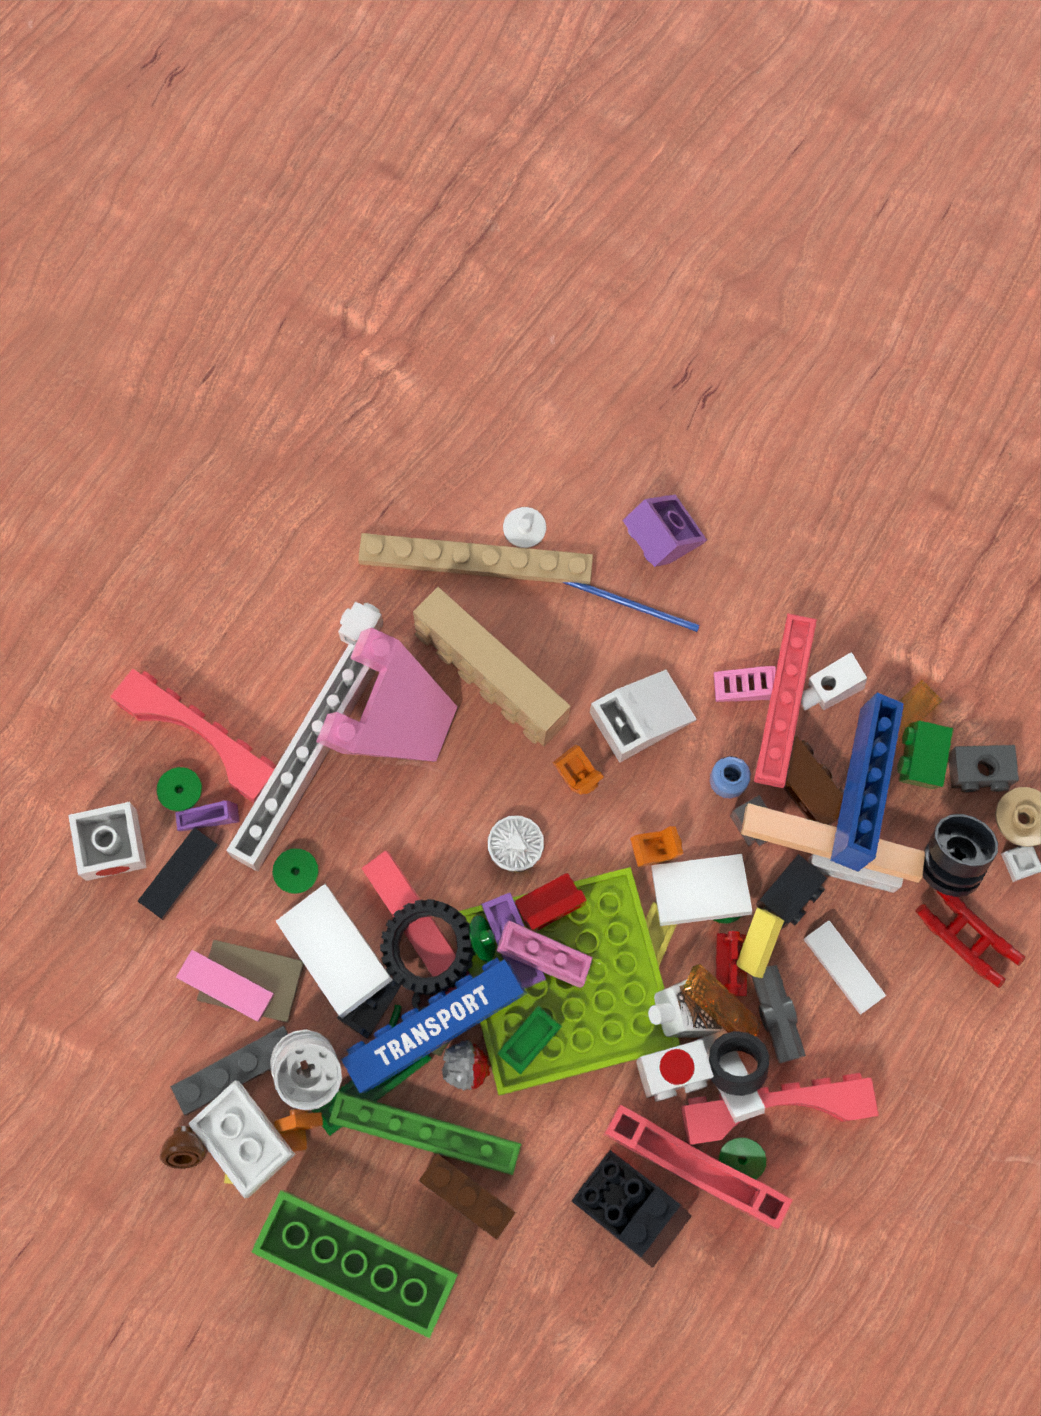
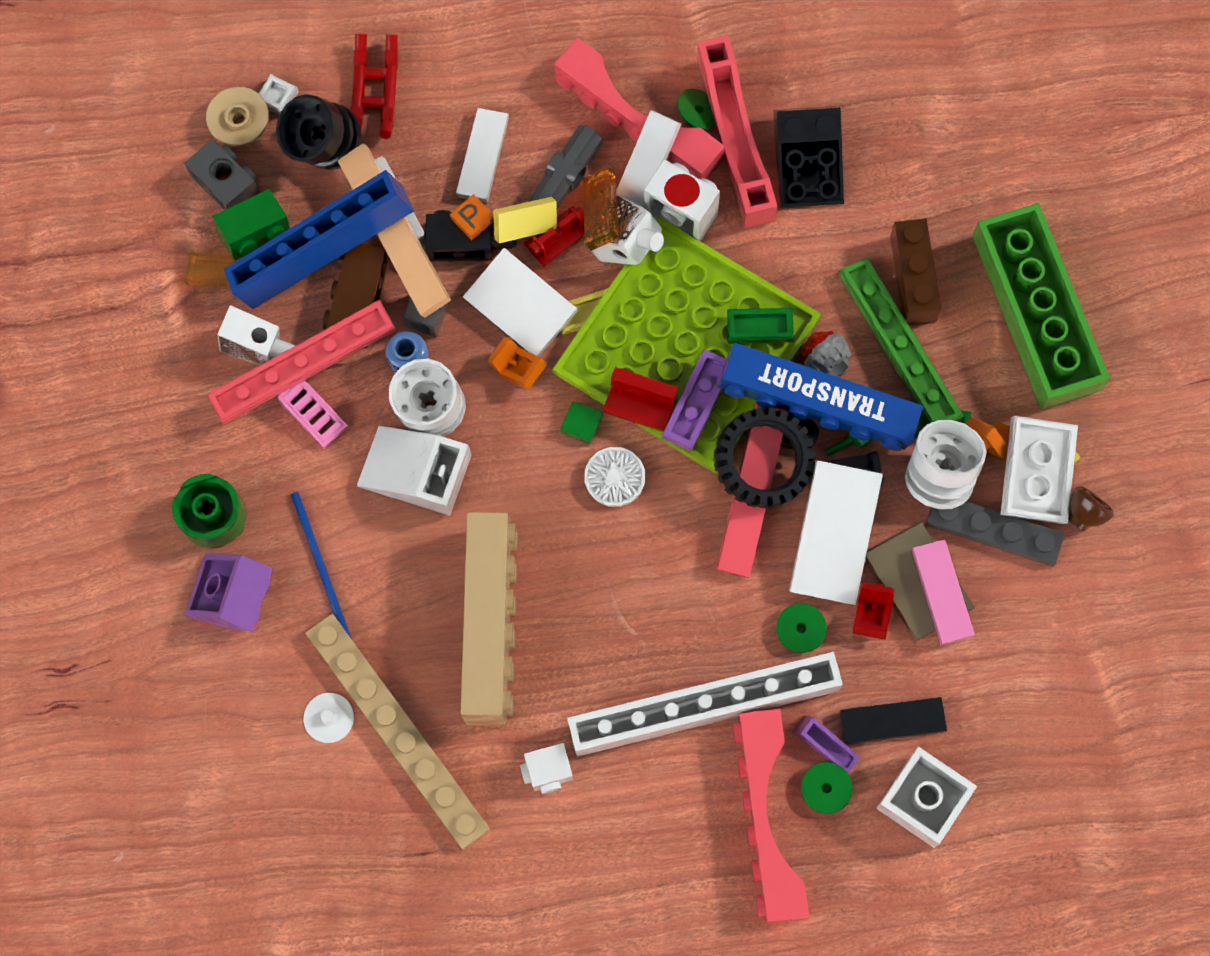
camera: 125 degrees left, 0 degrees up
(258, 927) = (873, 610): none -> red bracket
(405, 710) = (596, 652): bright pink wedge -> none
(482, 938) = (718, 422): green piece -> none
(544, 954) = (686, 365): bright pink tile -> none
(575, 856) = (581, 422): none -> green tile
(578, 771) = (510, 476): orange bracket -> none
(690, 746) = (422, 382): none -> white wheel
(727, 574) = (192, 506): none -> green brick
(745, 1043) = (611, 149): black tyre -> none
(794, 905) = (472, 217): none -> orange tile

